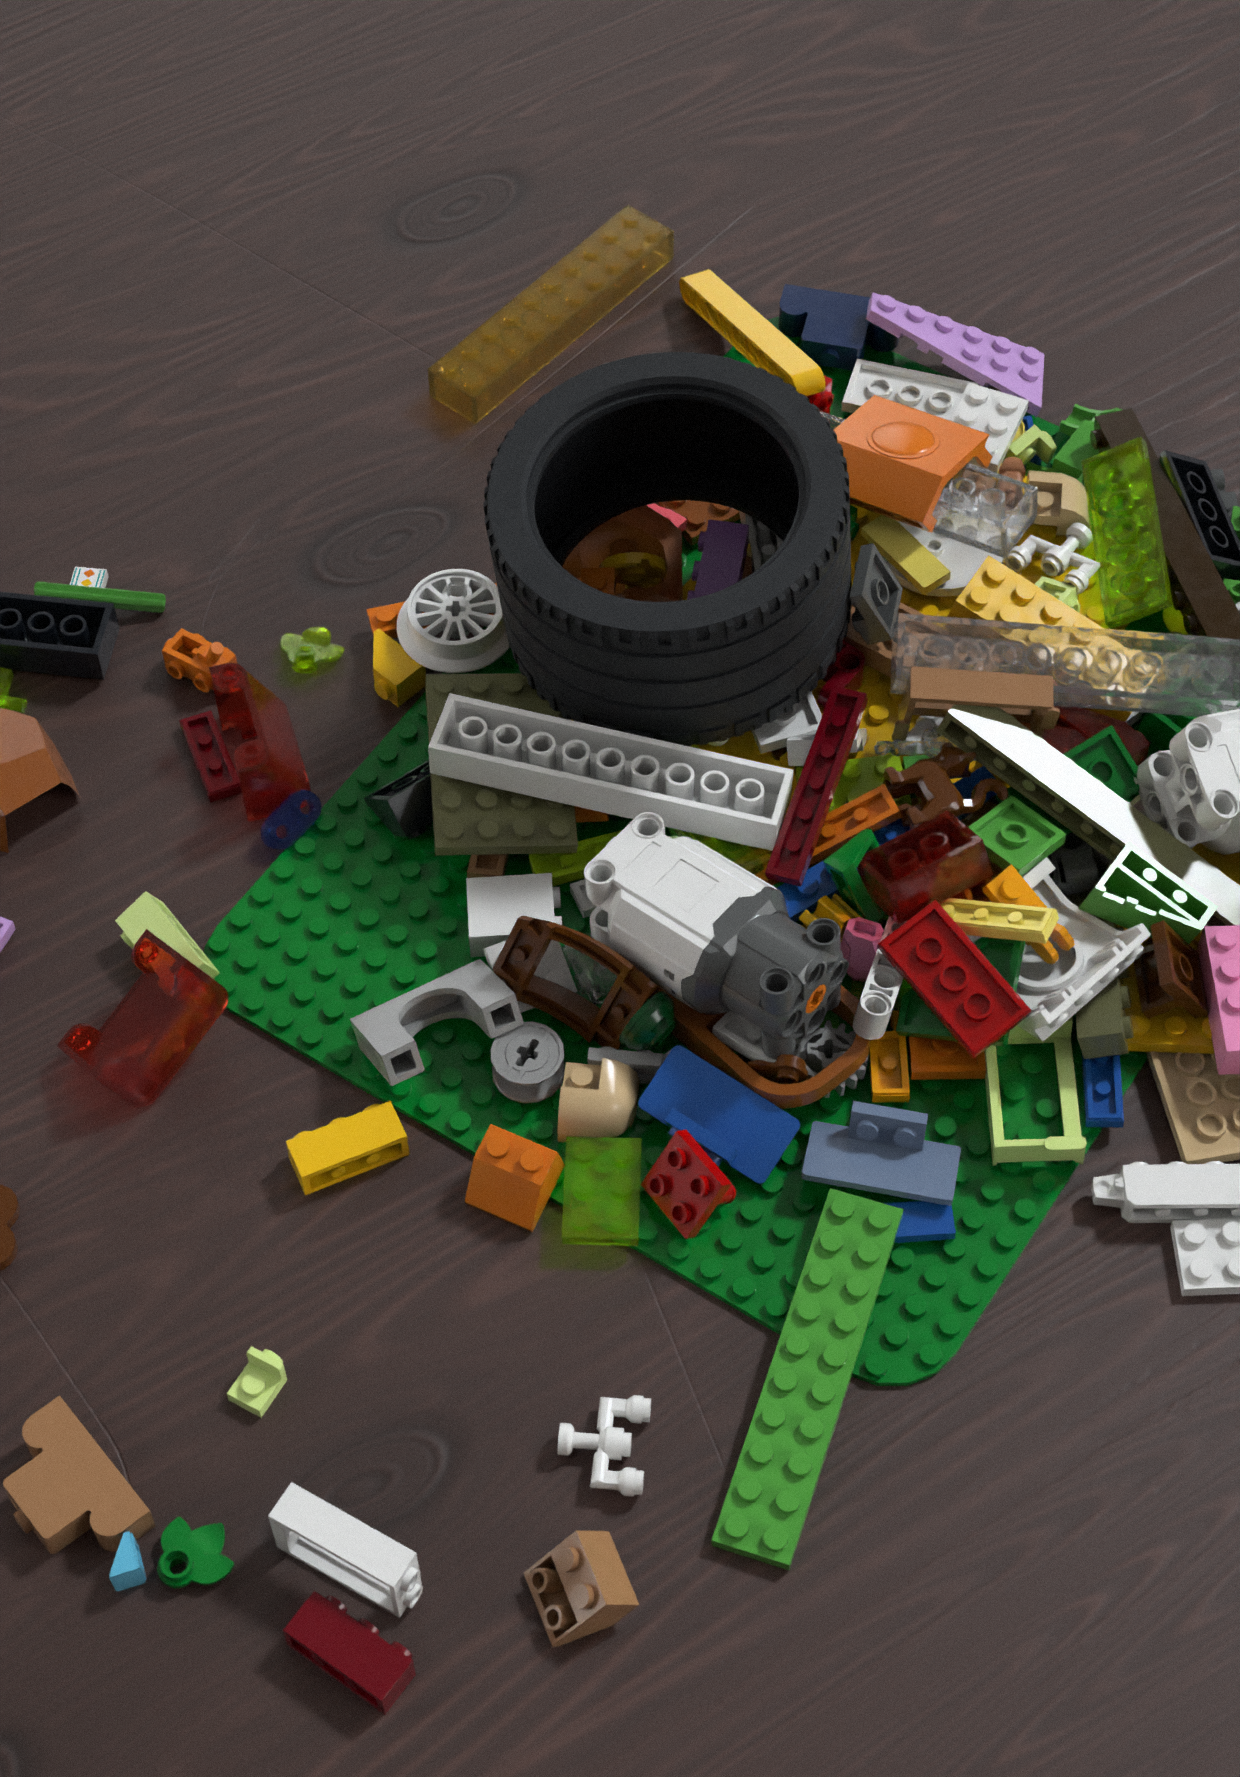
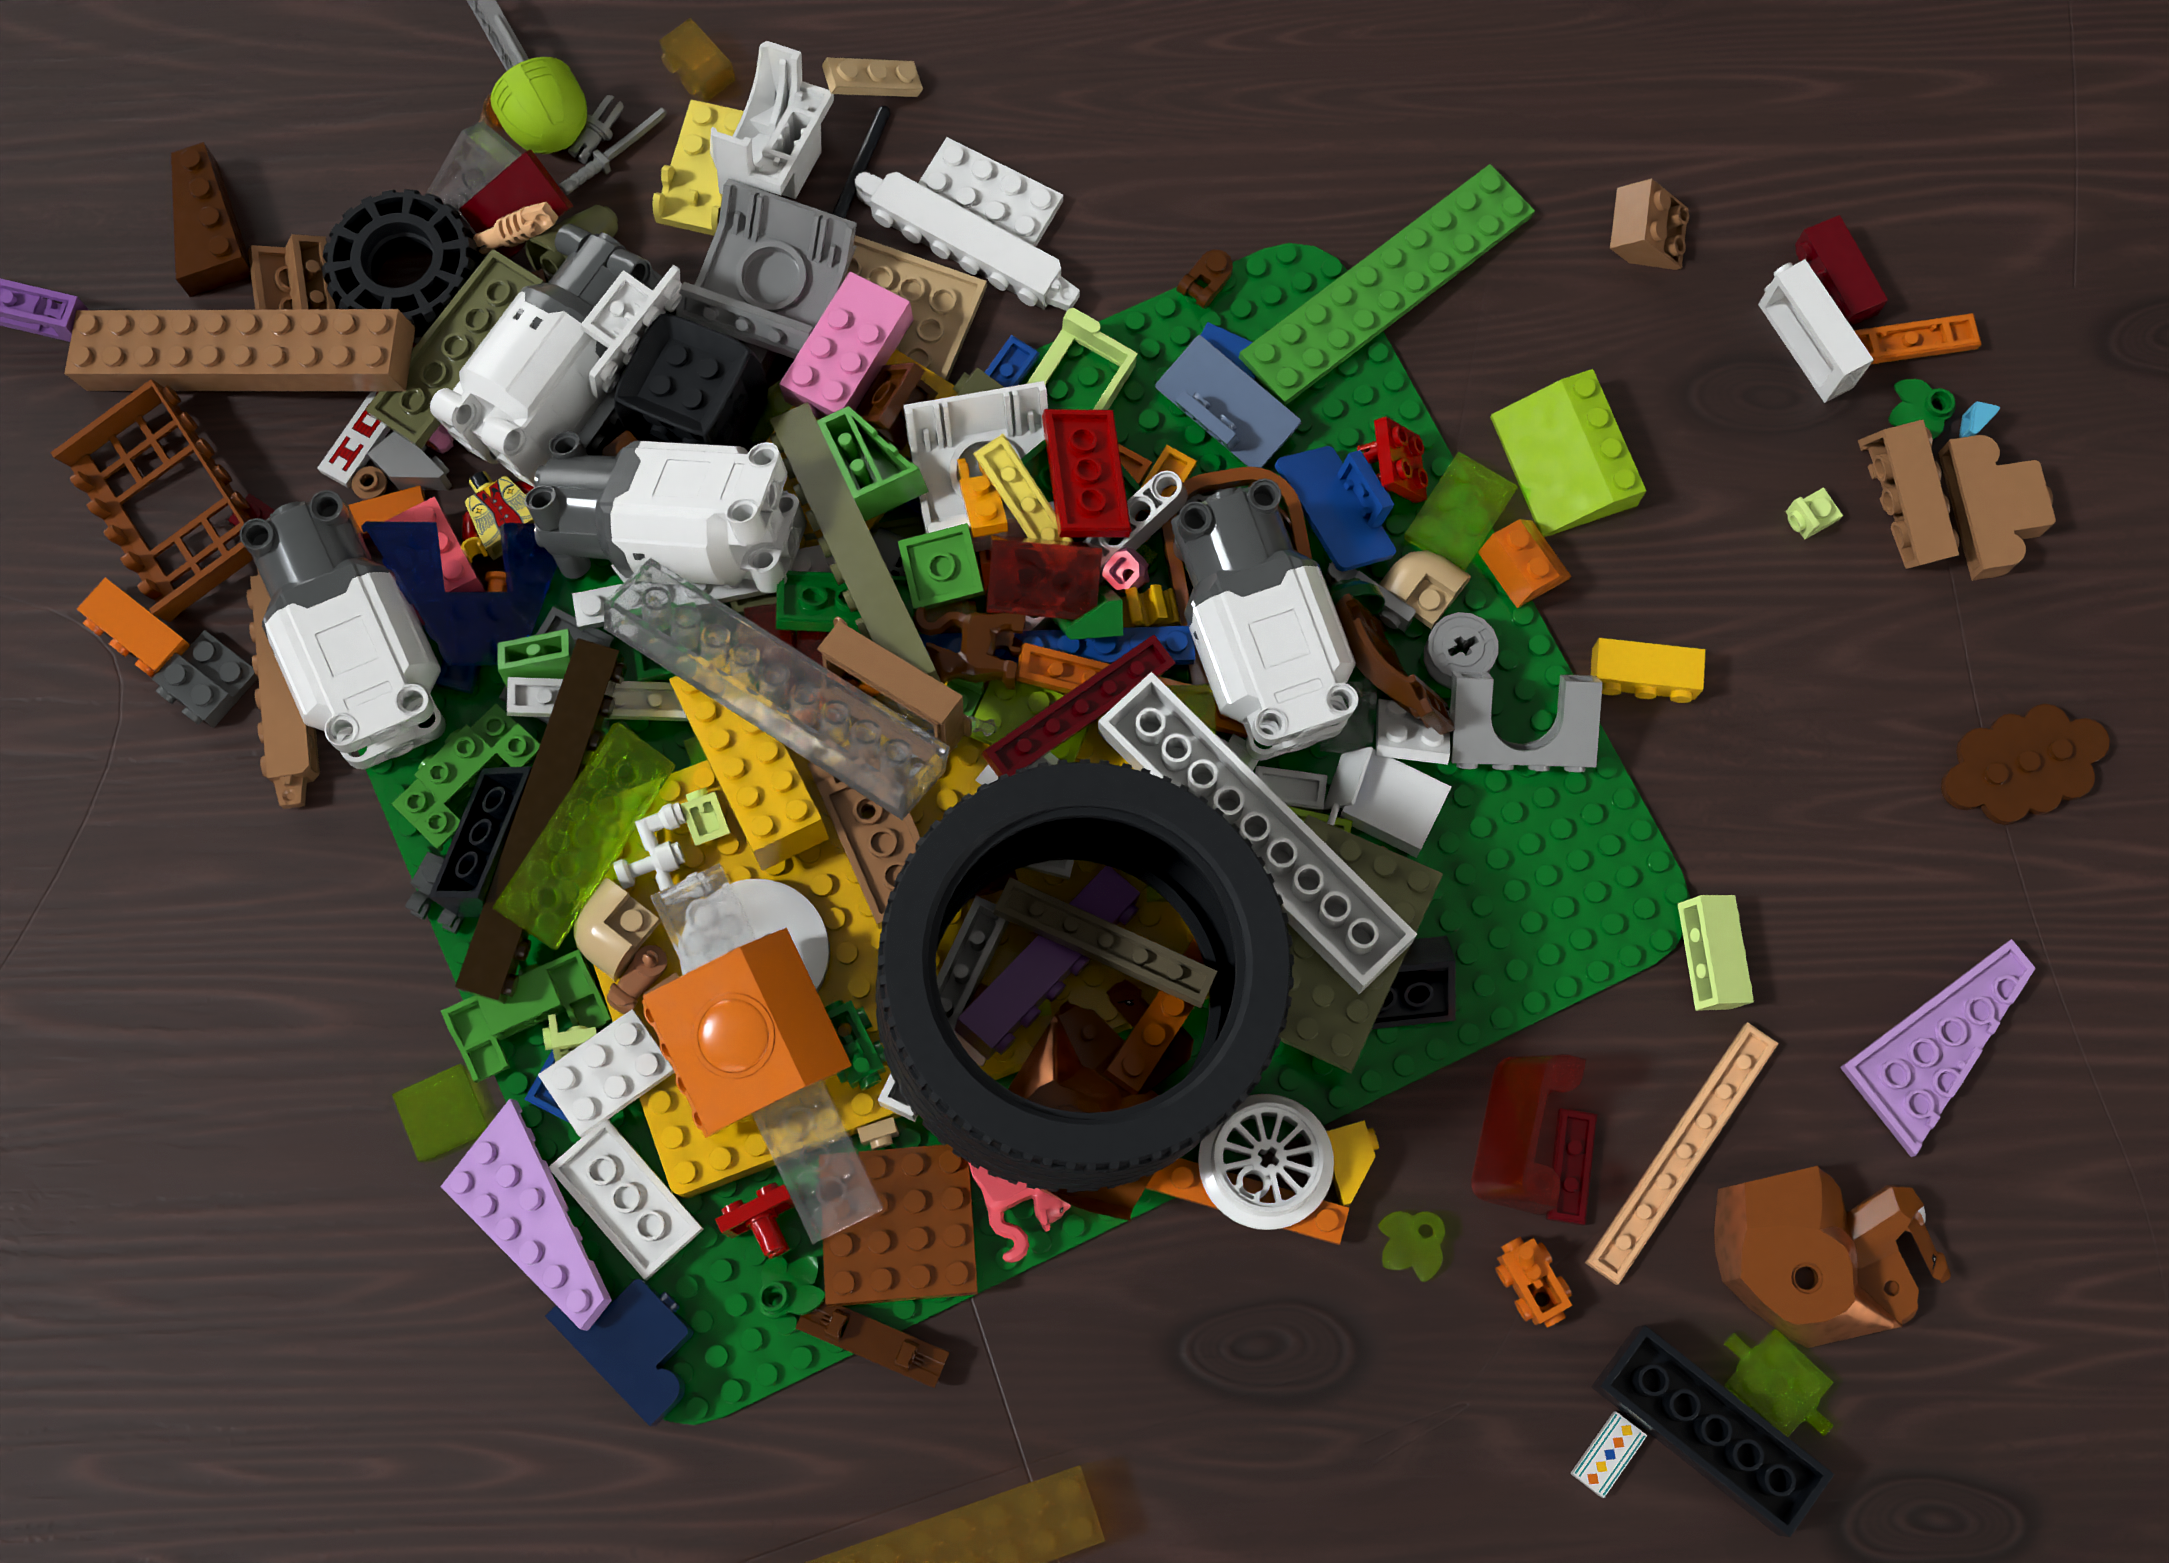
camera: 150 degrees left, 20 degrees up
(121, 598) = (1600, 1429): bright green axle -> none
(122, 811) = (1681, 1153): none -> light nougat tile
(151, 1026) = (1779, 870): clear red windscreen -> none
(169, 1444) = (1912, 492): none -> medium nougat wedge
(239, 1620) = (1921, 338): none -> orange plate
(292, 819) = (1536, 1033): clear blue plate -> none
(529, 1307) = (1569, 454): none -> lime slope
(560, 896) = (1347, 781): none -> white piece
(611, 1443) = (1568, 318): white piece -> none
(637, 569) = (1079, 1079): tile -> none
(750, 332) = (741, 1362): yellow beam -> none
(875, 596) = (884, 865): dark grey plate -> none
(906, 554) = (805, 927): light yellow tile -> none
(986, 1289) = (1214, 270): none -> reddish brown plate
(1084, 387) = (440, 1112): none -> clear neon green tile

